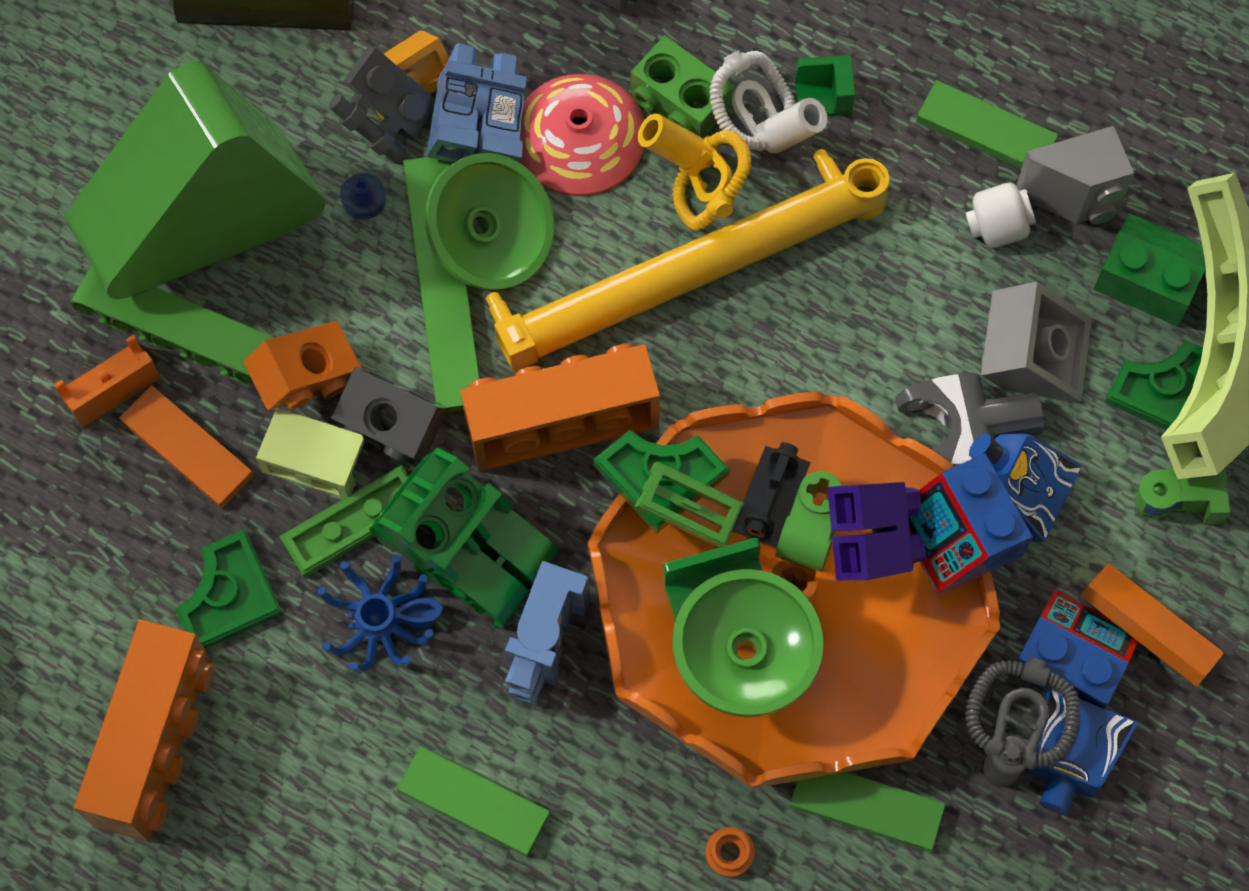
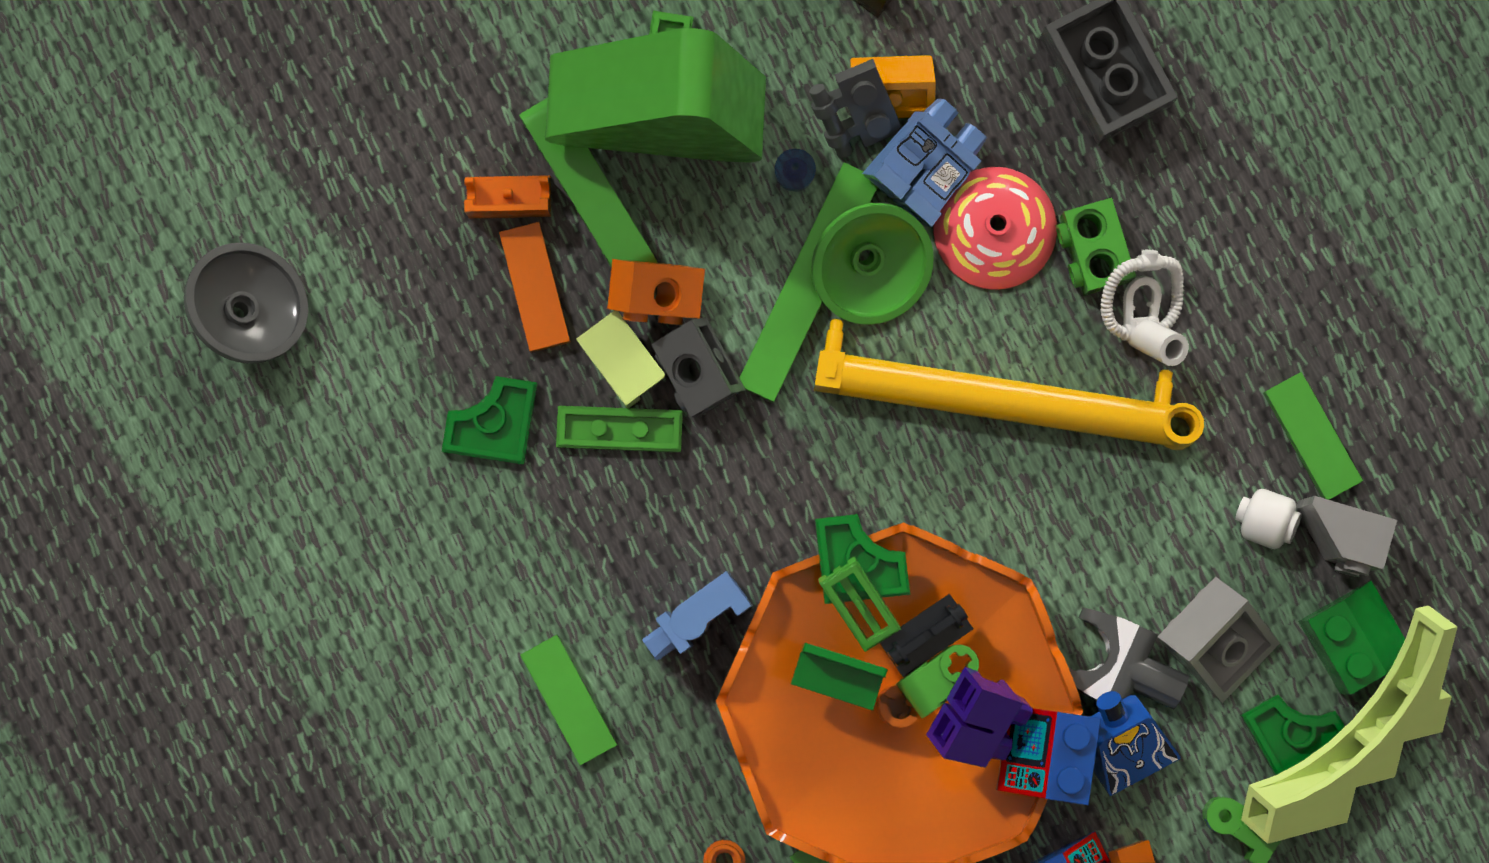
camera: 35 degrees right, 15 degrees up
(145, 731) = (366, 497): orange brick -> none
(378, 616) = (590, 518): blue animal -> none
(461, 537) = (671, 459): green connector -> none
(561, 406) = (825, 452): orange brick -> none
(692, 156) = (1064, 310): yellow piece -> none
(756, 612) = (859, 747): bright green dish -> none
(827, 81) = (1209, 319): green panel -> none

